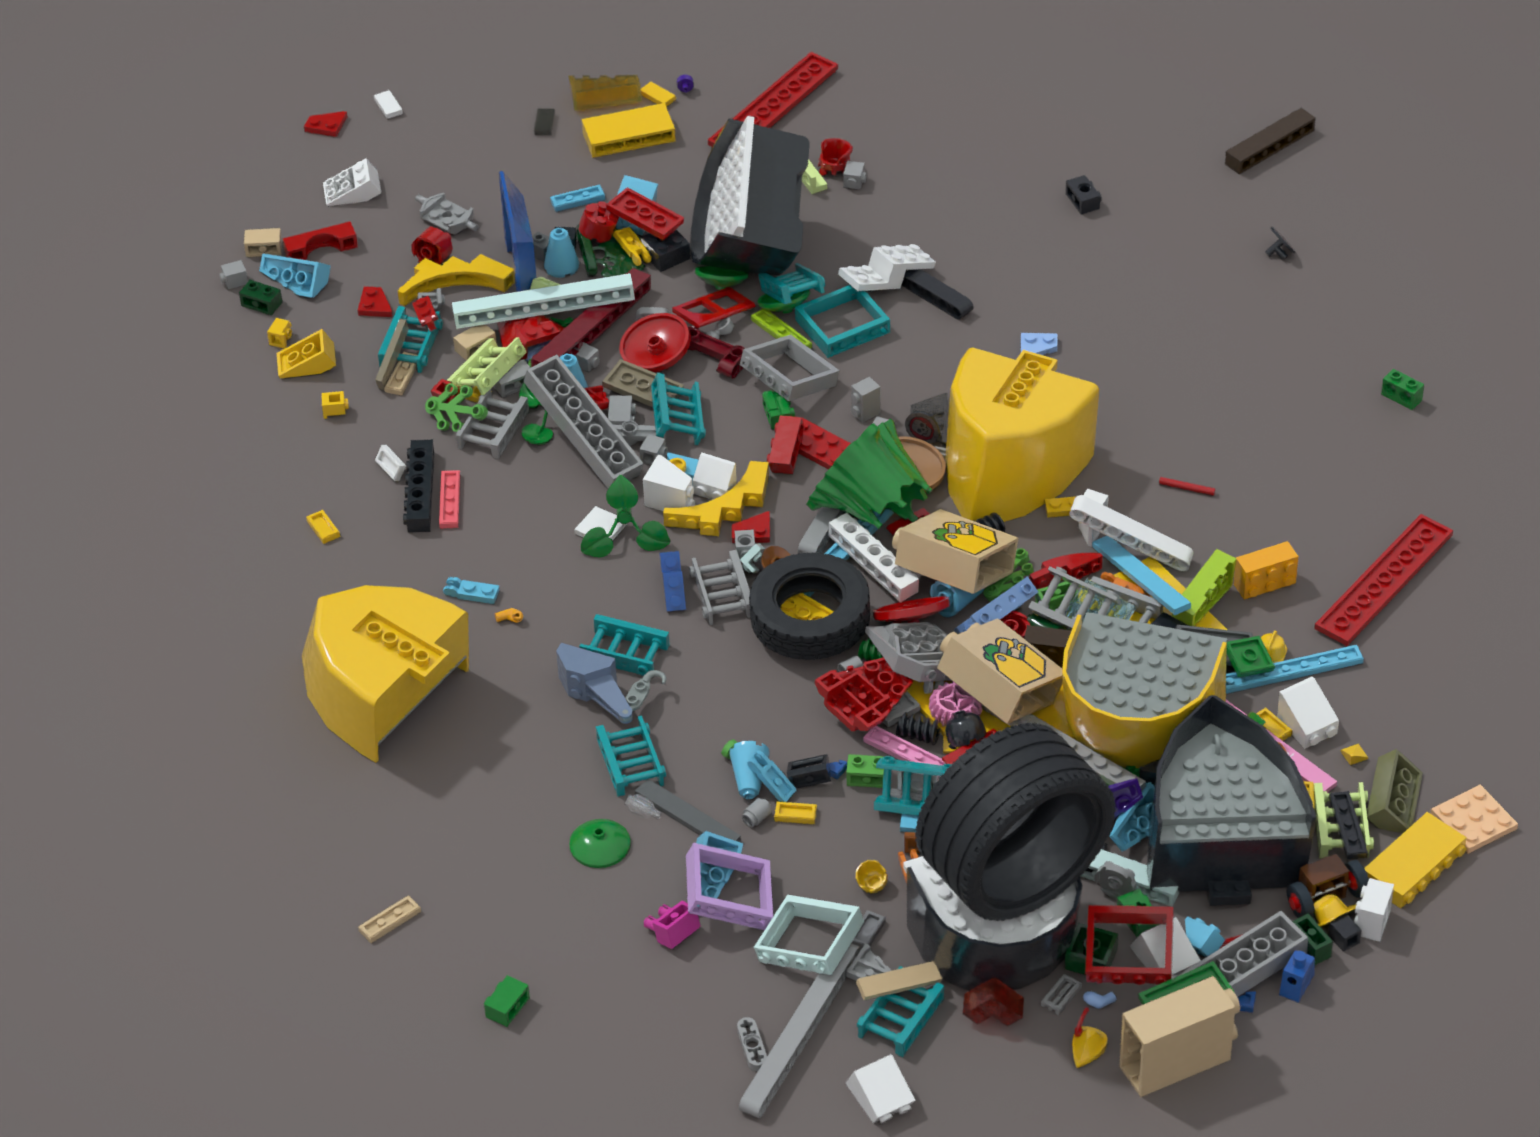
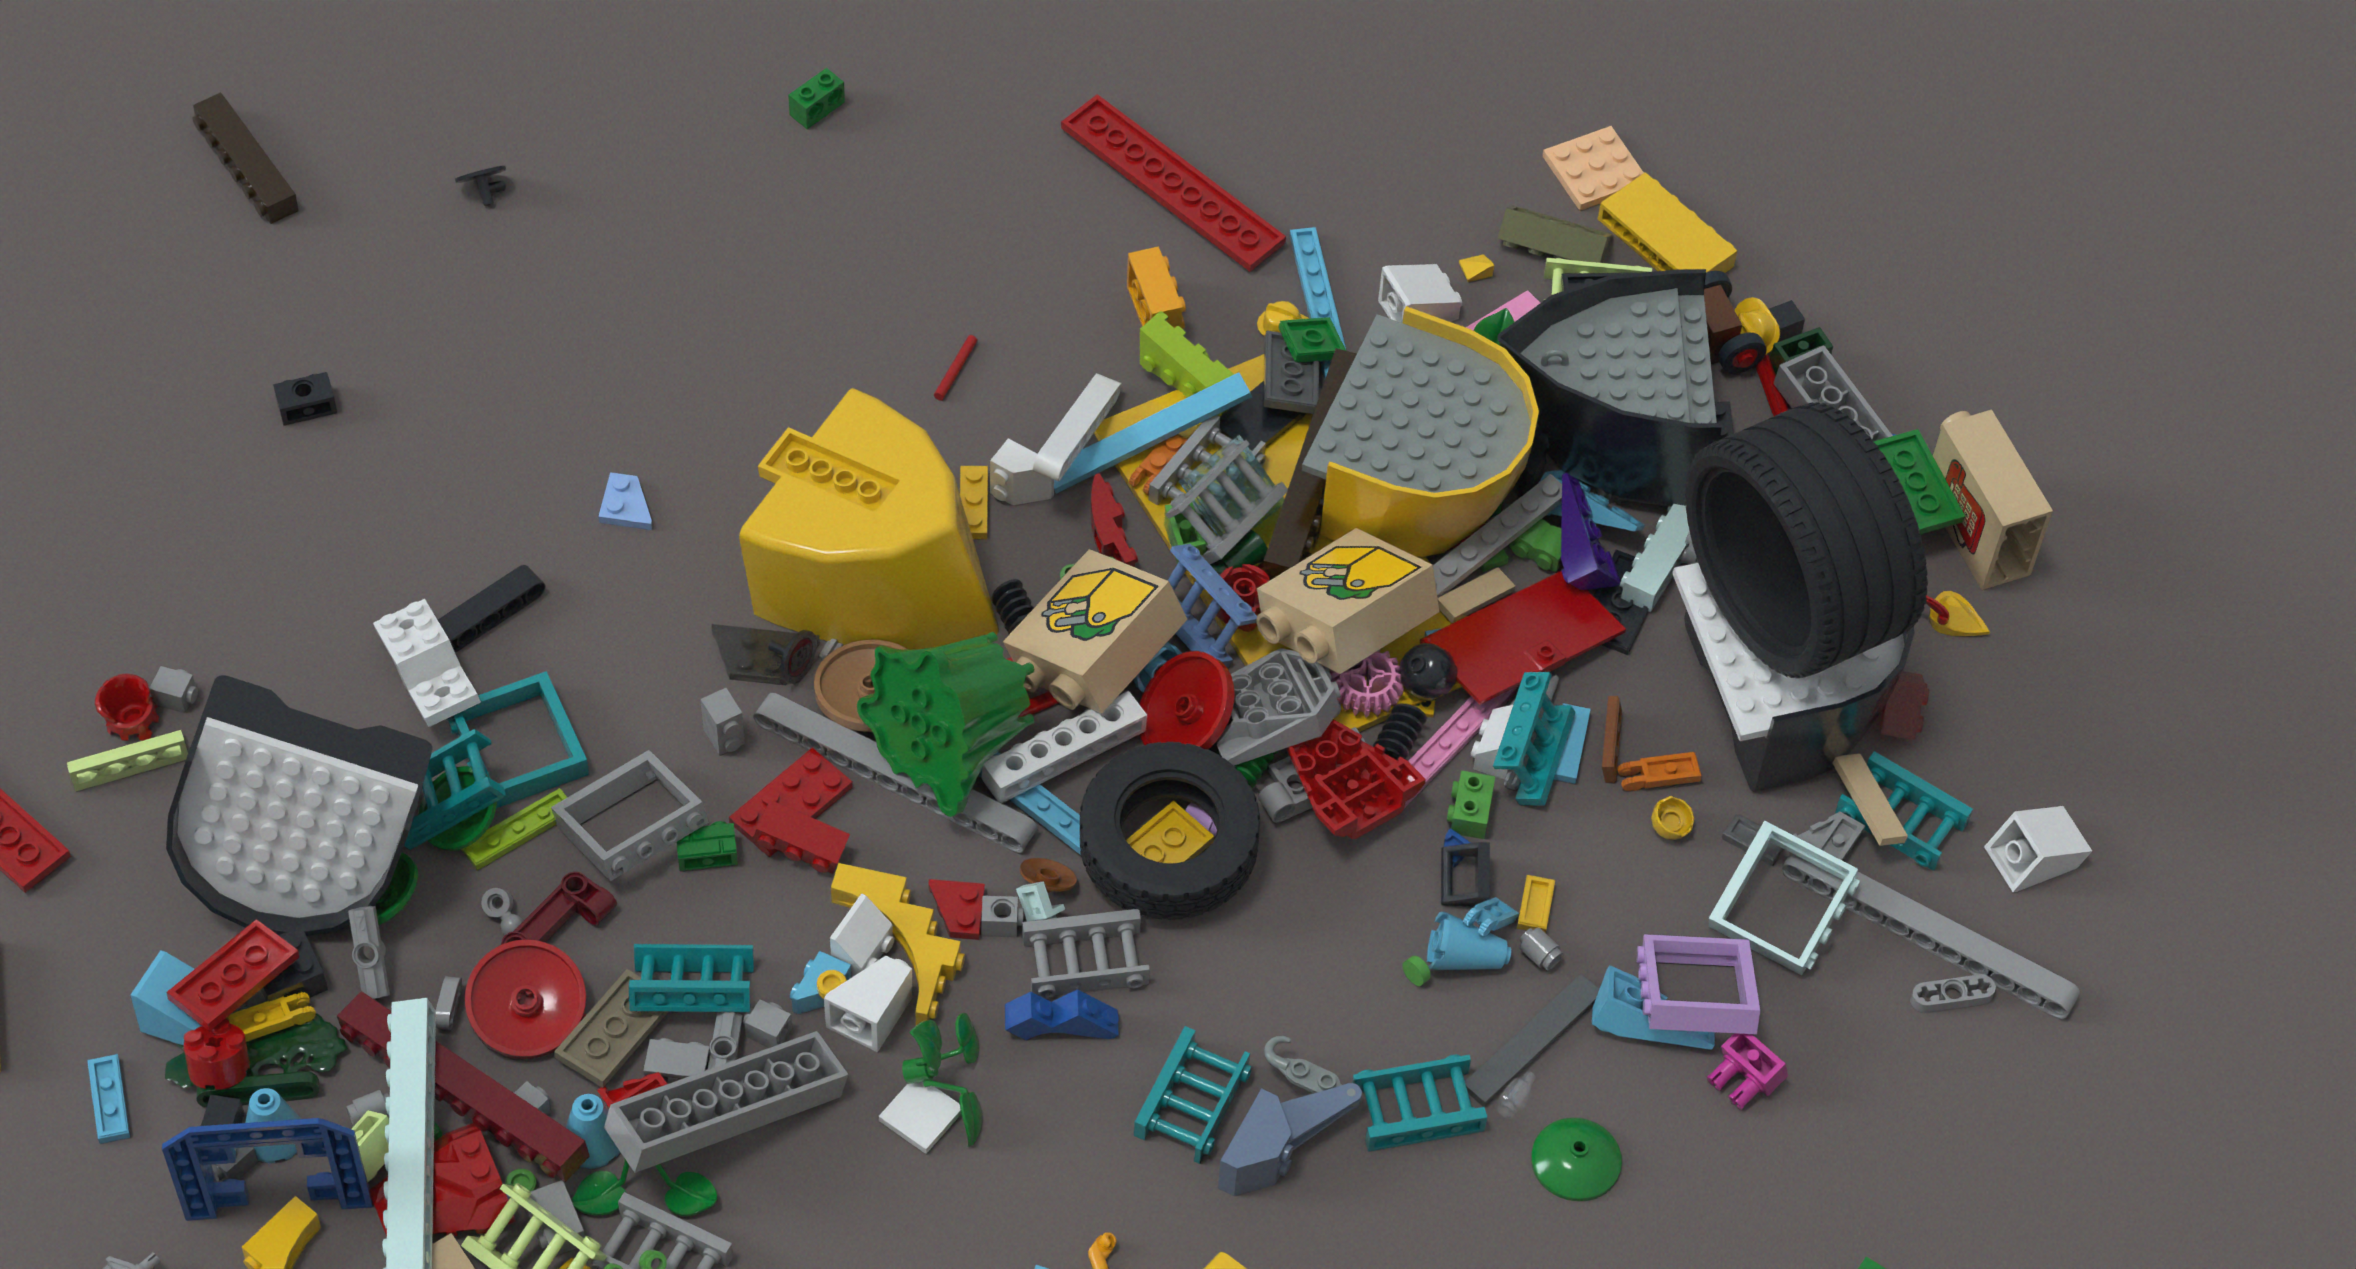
camera: 90 degrees left, 10 degrees up
(674, 271) = (367, 933): none -> light grey piece
(699, 320) = (489, 925): red window -> none
(1299, 967) = (1863, 372): blue torso -> none
(1374, 908) = (1761, 277): white brick -> none

